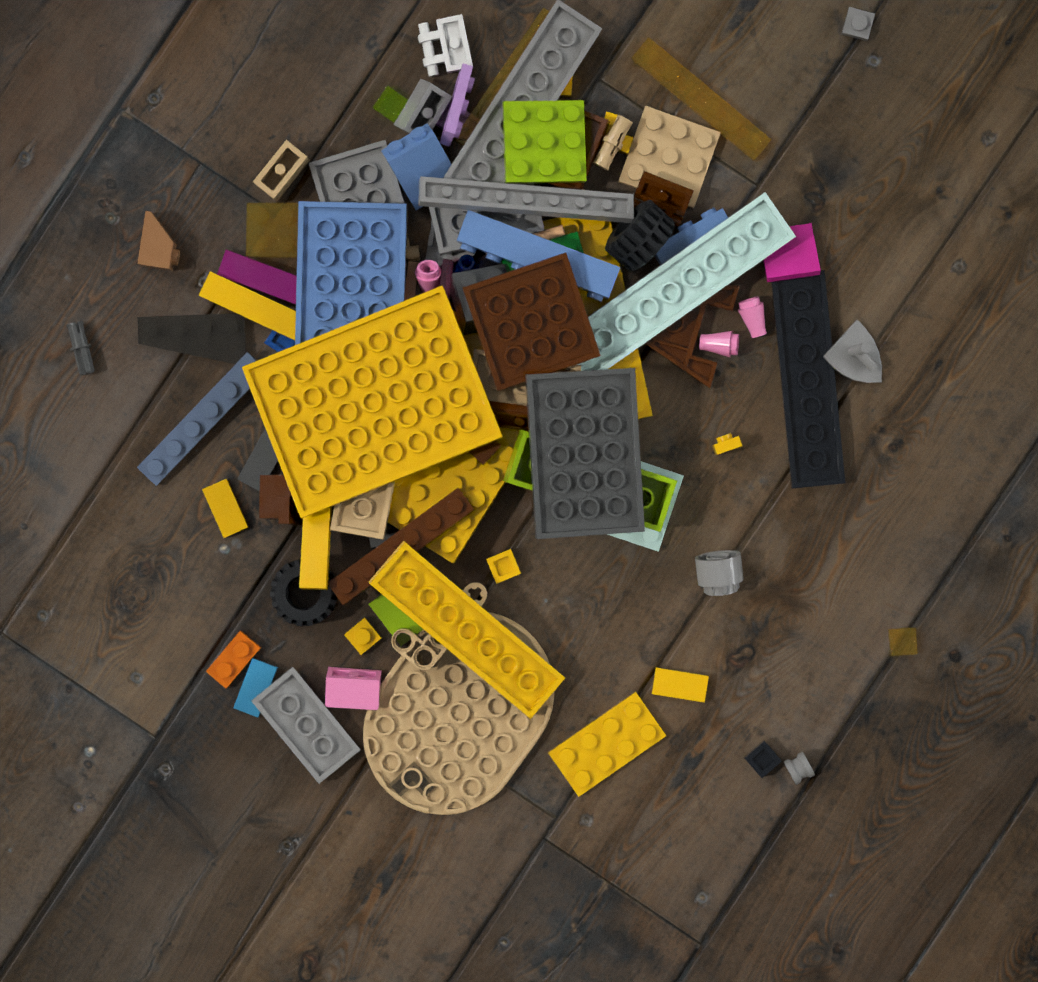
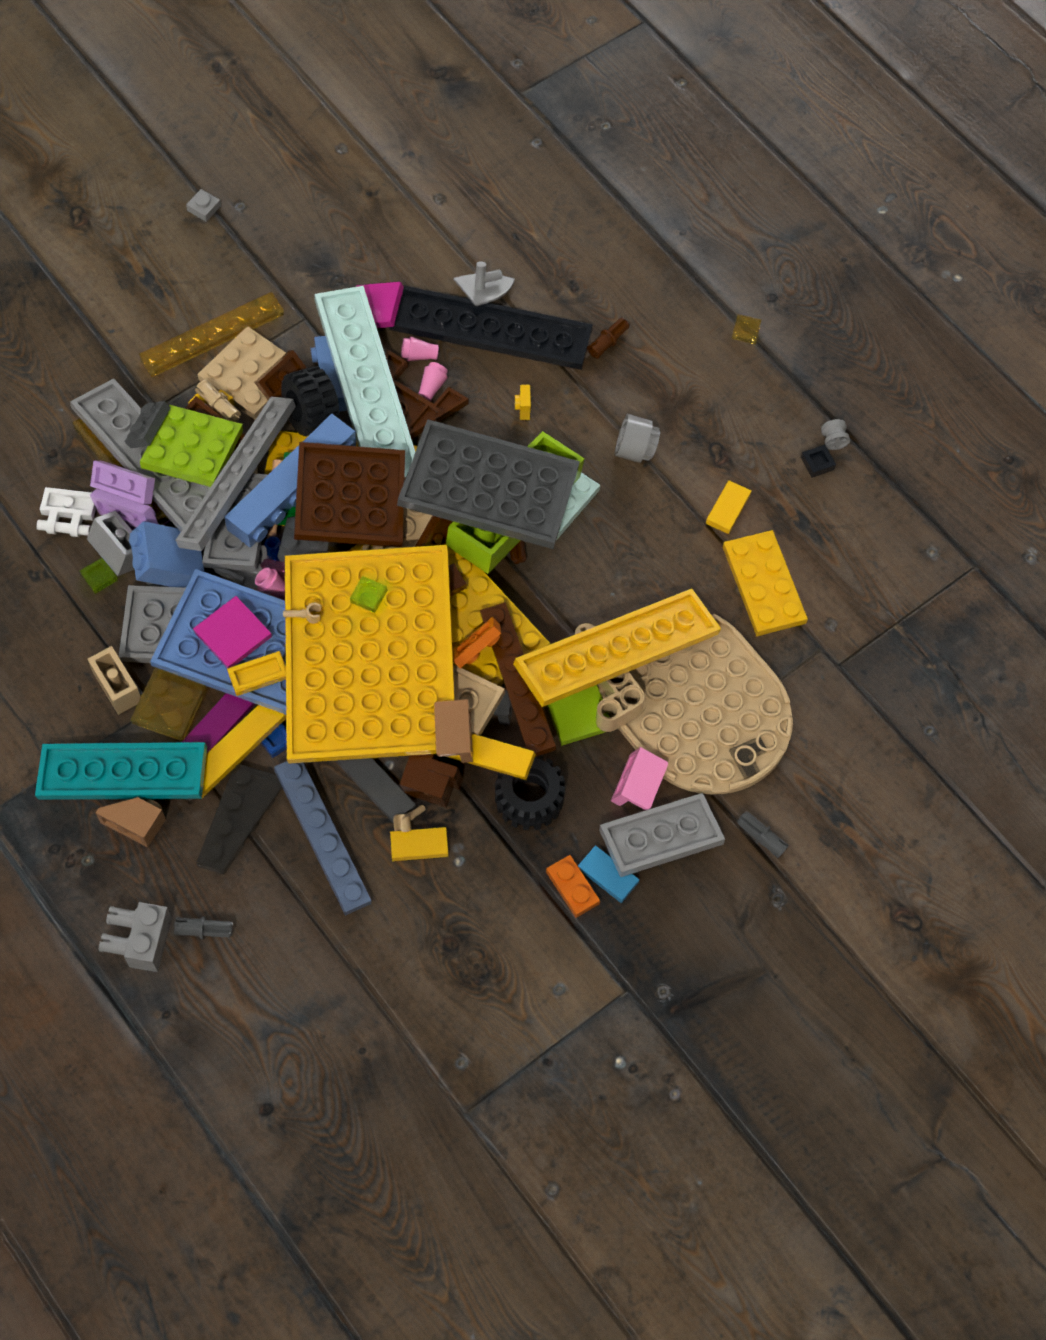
camera: 75 degrees left, 25 degrees down
(46, 304) = (147, 937): none -> light grey brick
(195, 215) = (121, 771): none -> teal plate
(240, 486) = (402, 821): none -> tan hand
(318, 509) = (453, 729): none -> medium nougat panel
(319, 305) = (257, 673): none -> yellow tile
(340, 816) = (762, 834): none -> dark grey axle
(351, 266) = (232, 632): none -> dark pink tile
(363, 636) = (591, 759): yellow plate -> none
(385, 326) = (305, 613): none -> tan hand
(418, 497) = (469, 649): none -> orange plate
(425, 381) = (368, 594): none -> clear neon green tile
(480, 92) = (122, 482): none -> lavender plate
(503, 566) = (567, 613): yellow plate -> none
(550, 89) = (147, 424): none -> dark grey plate
(838, 504) = (608, 338): none -> reddish brown axle

